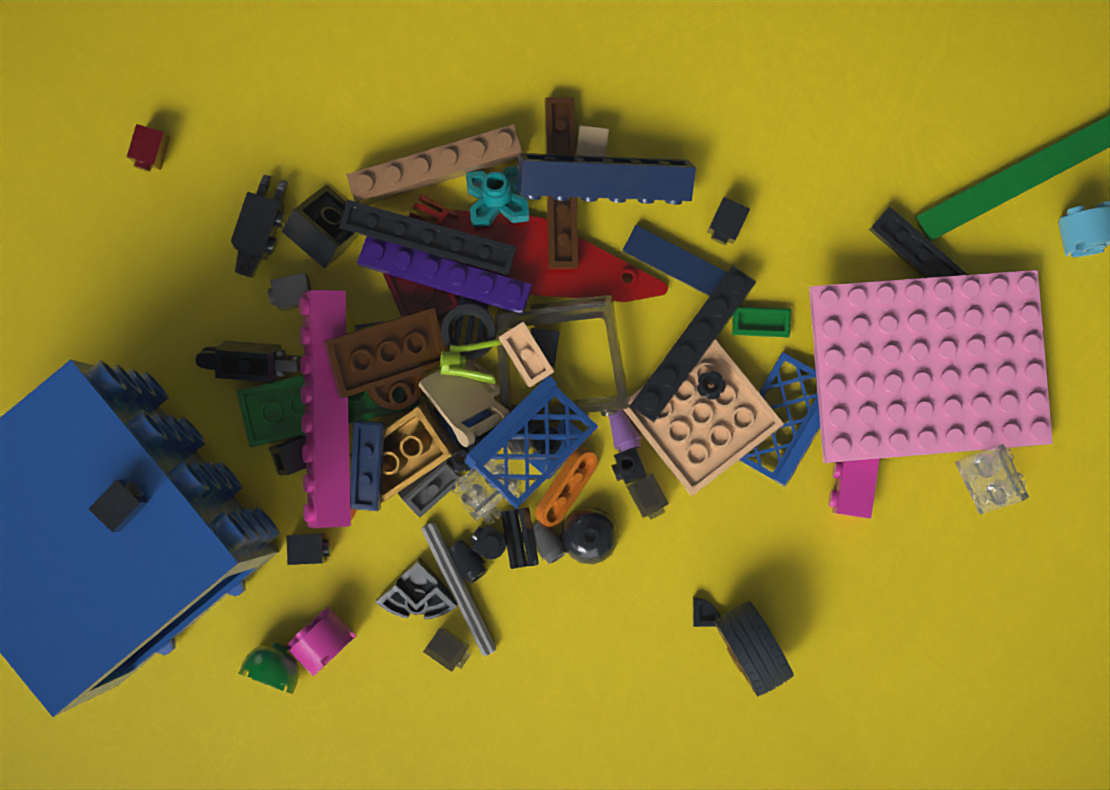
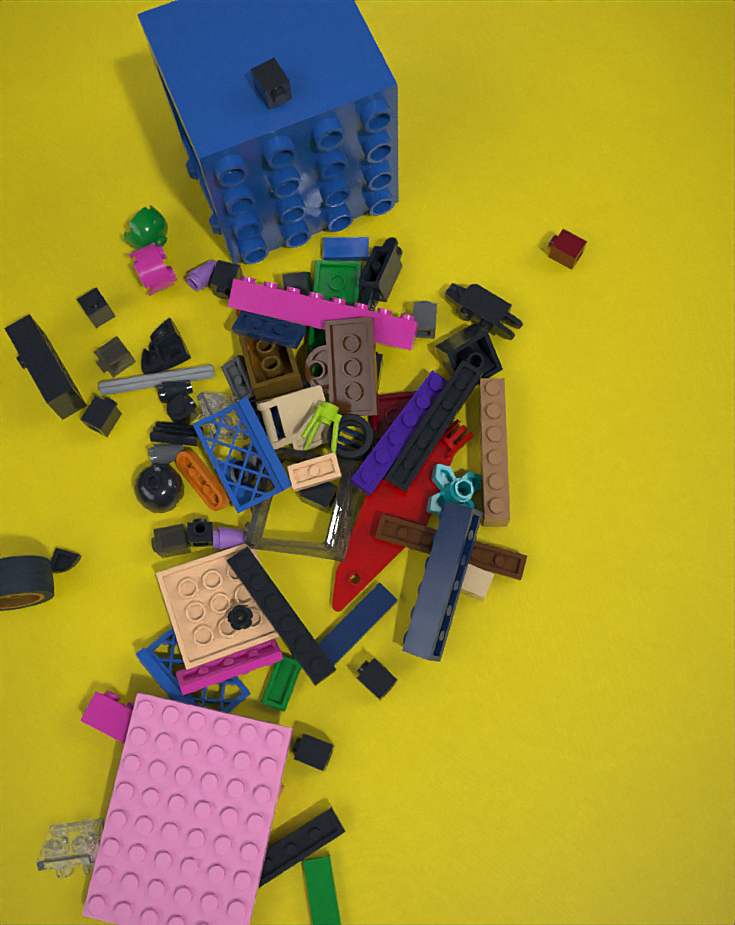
camera: 115 degrees right, 15 degrees down
(220, 417) = (346, 248): none -> blue tile
(308, 582) = (201, 276): none -> medium lavender cone
(390, 696) = (96, 307): none -> black brick
(487, 723) = (45, 367): none -> black brick
(524, 635) = (101, 415): none -> black brick
(765, 380) = (229, 667): none -> dark pink plate
(822, 263) = (313, 751): none -> black brick

